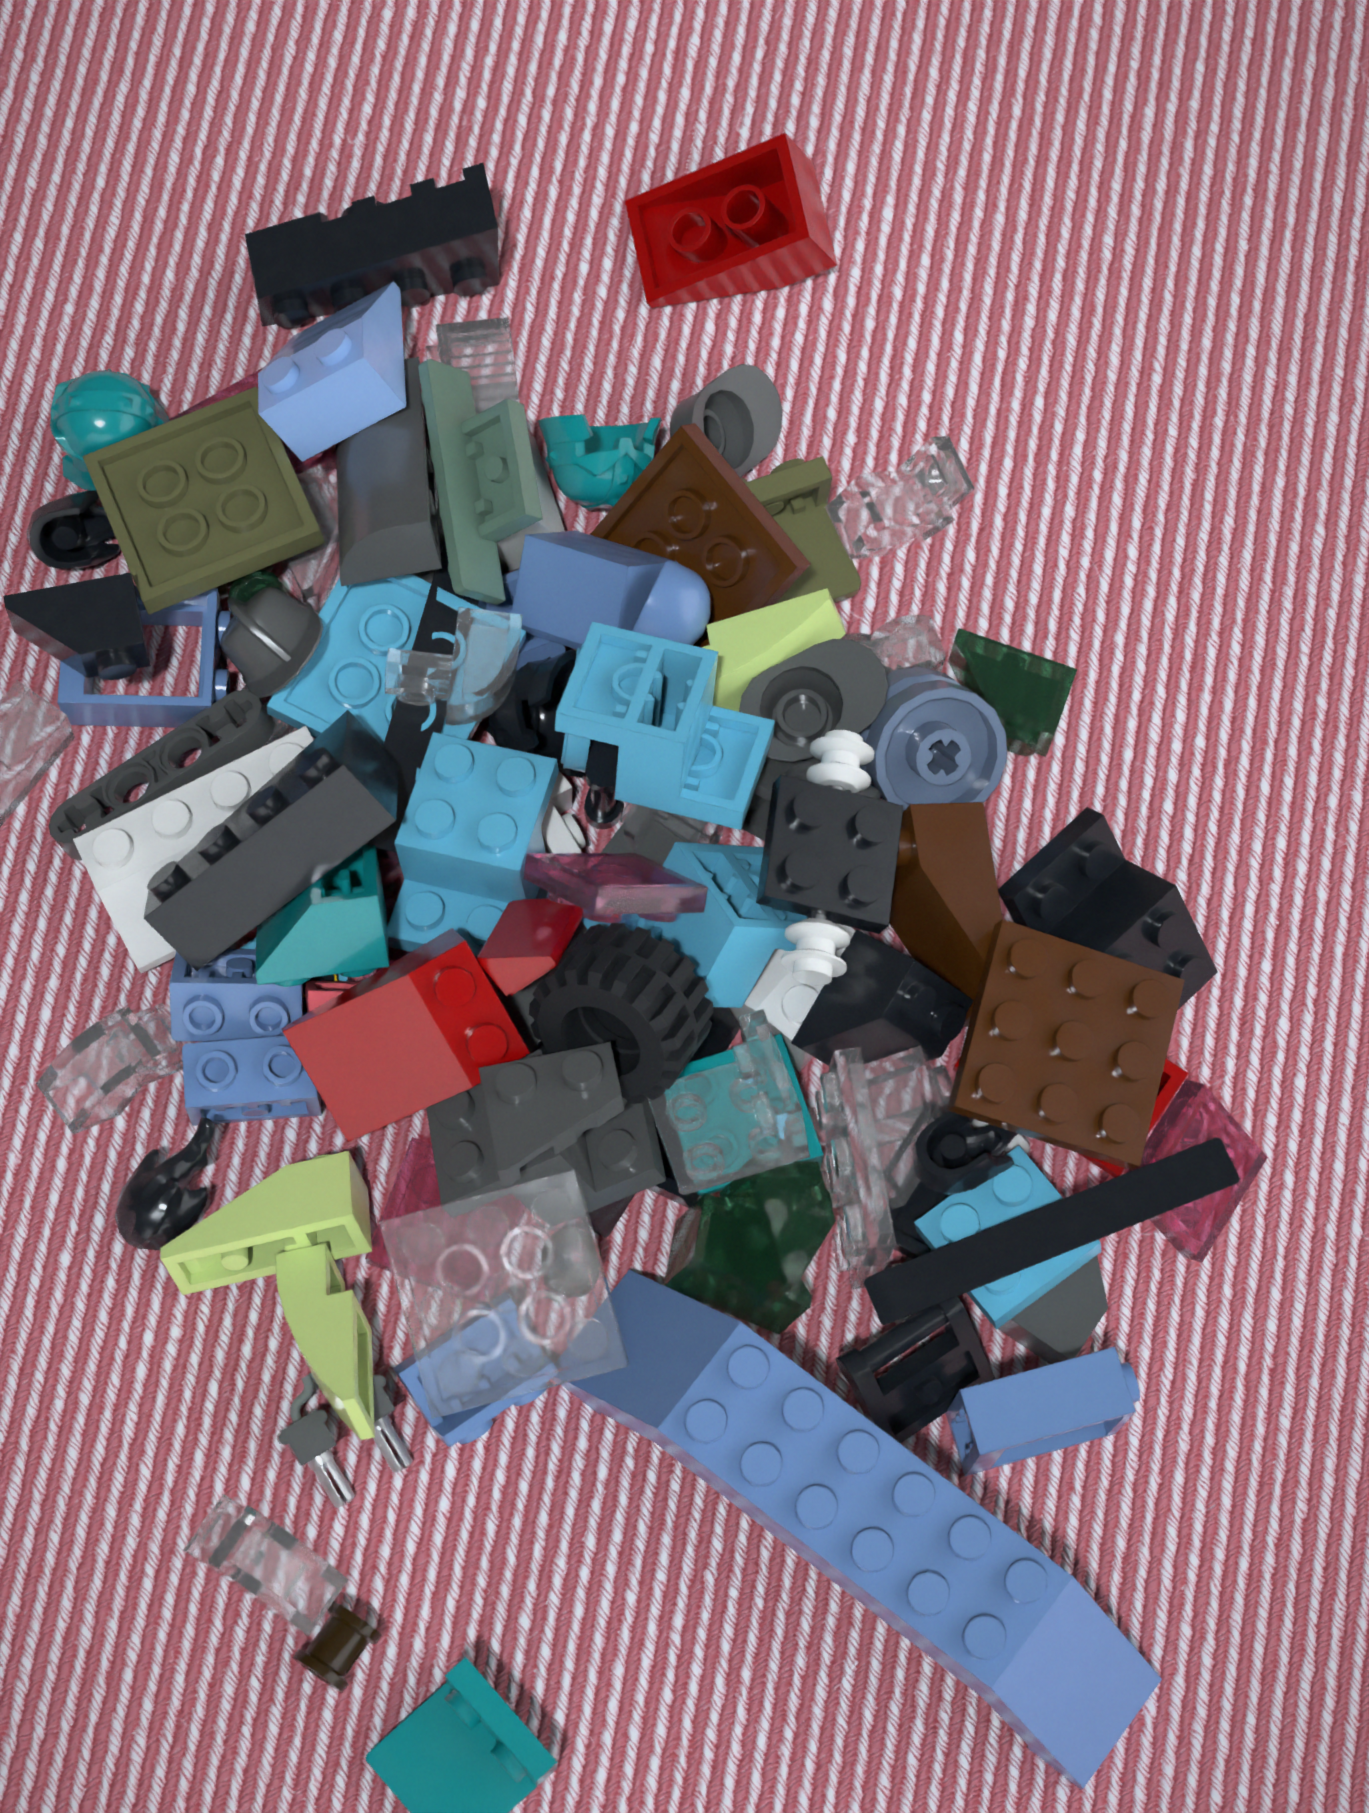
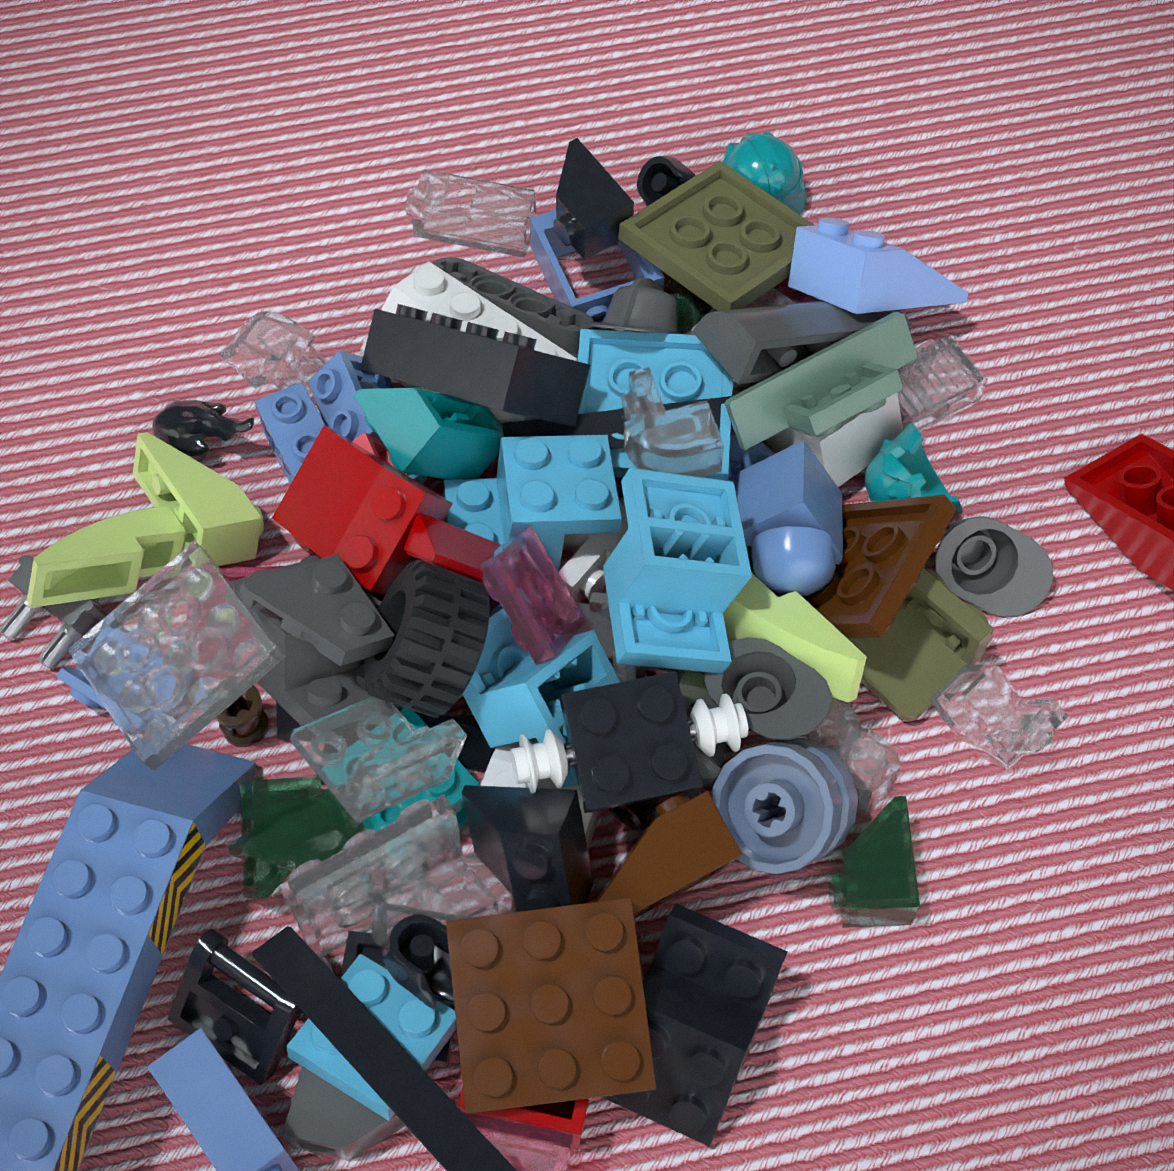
camera: 75 degrees right, 10 degrees down
(424, 243) = (1010, 300): black wedge -> none

